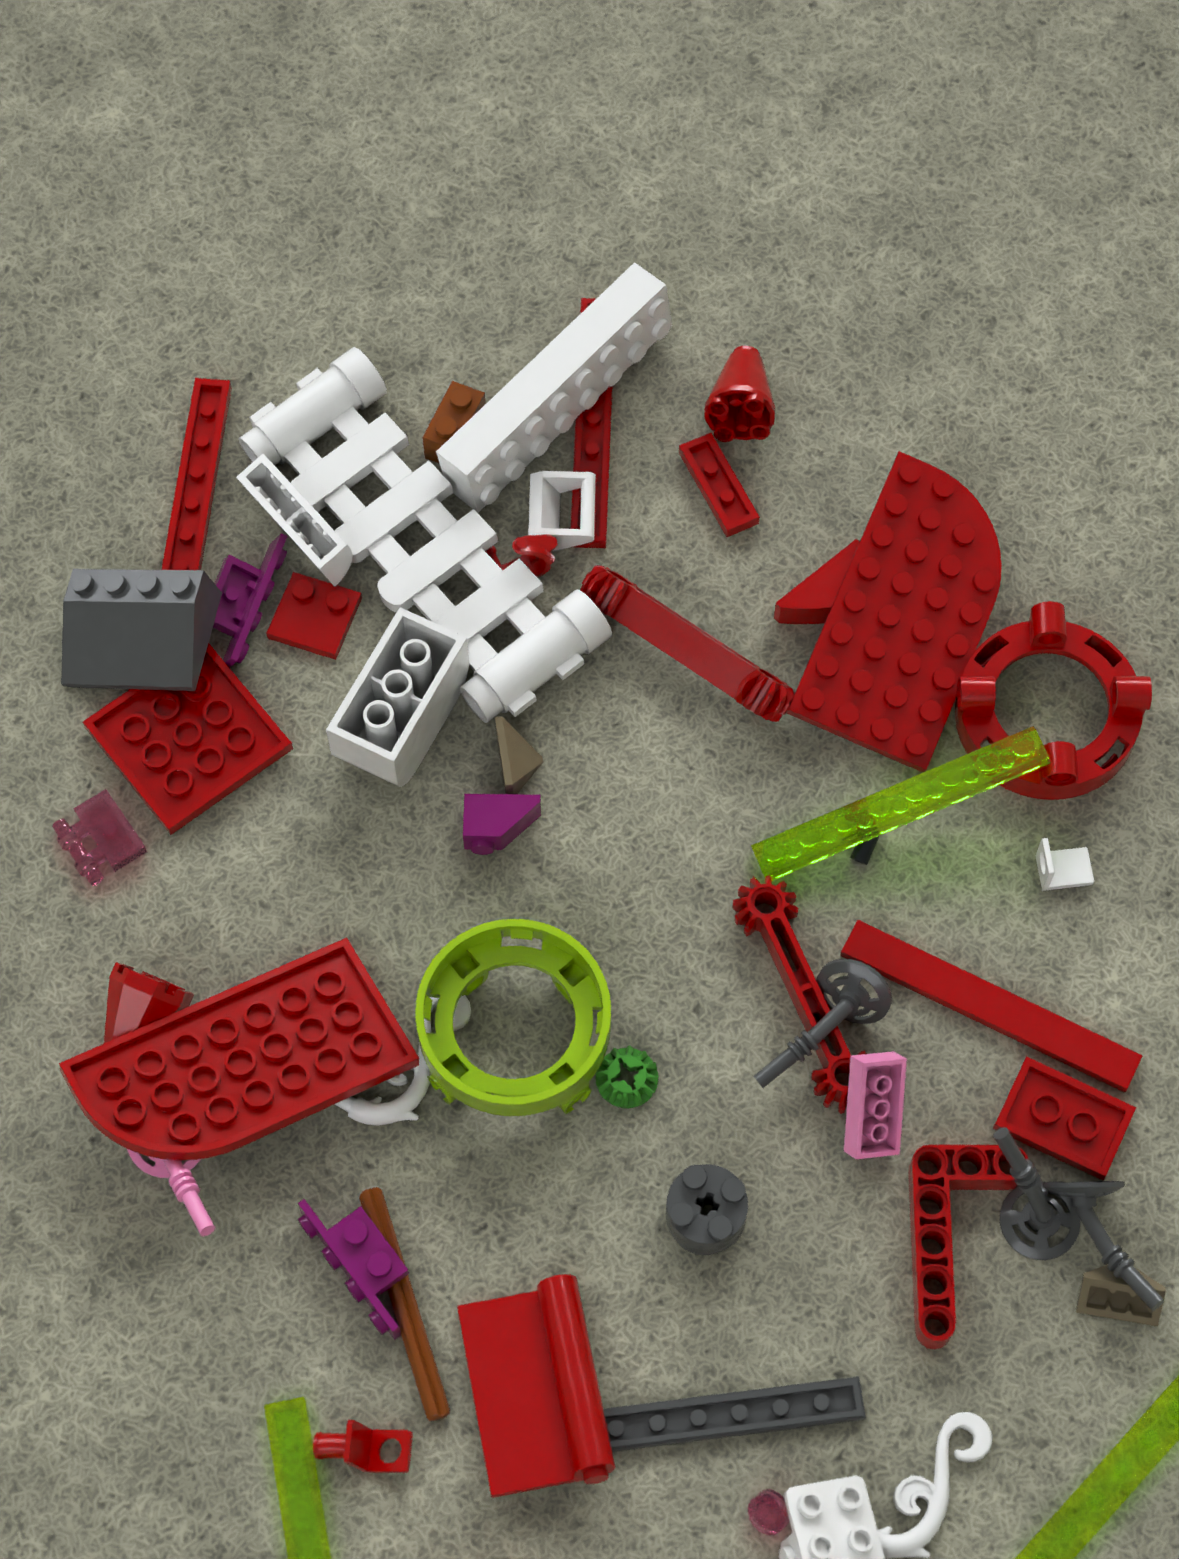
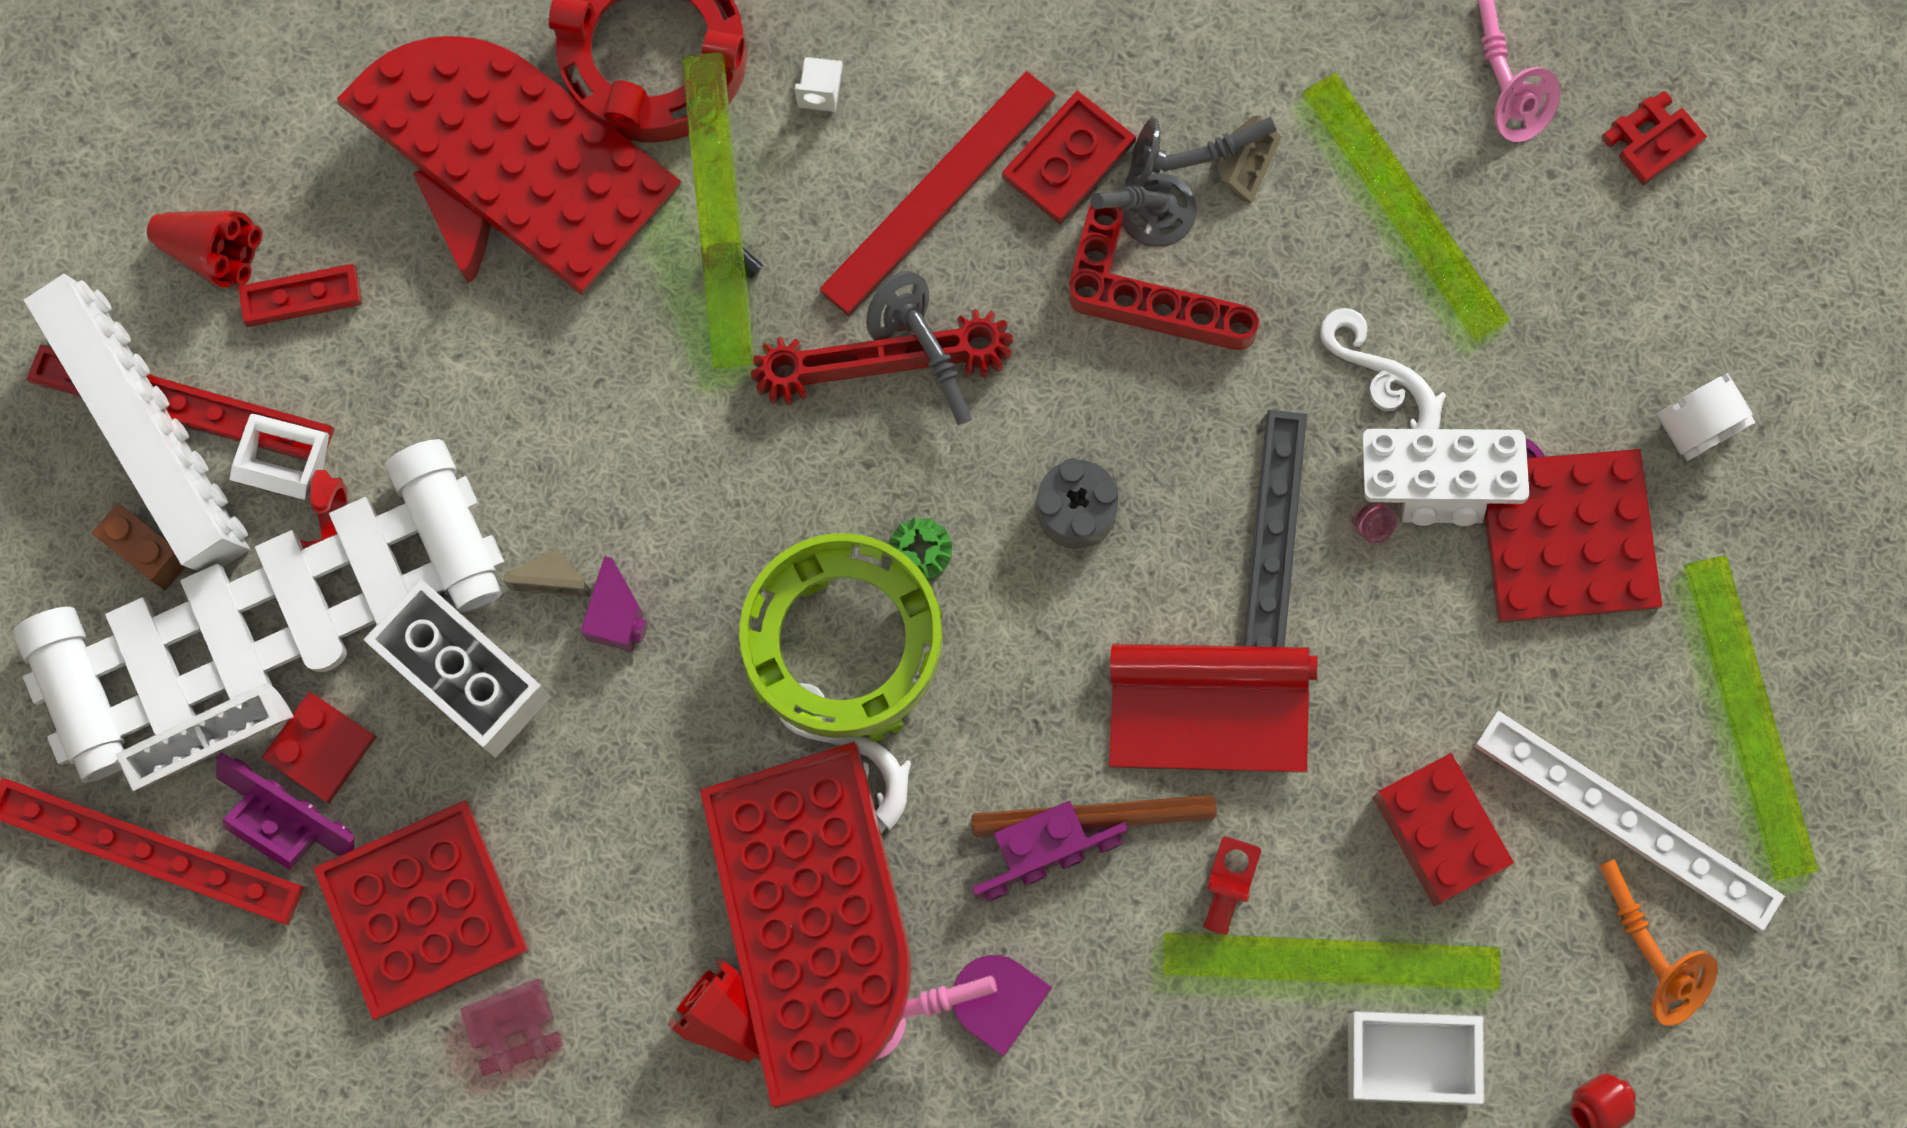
camera: 70 degrees left, 10 degrees up
(137, 628) = (284, 937): dark grey slope -> none
(210, 1262) = (1002, 1015): none -> magenta tile
(688, 644) = (476, 370): red arm -> none
(875, 1105) = (1019, 318): bright pink piece -> none

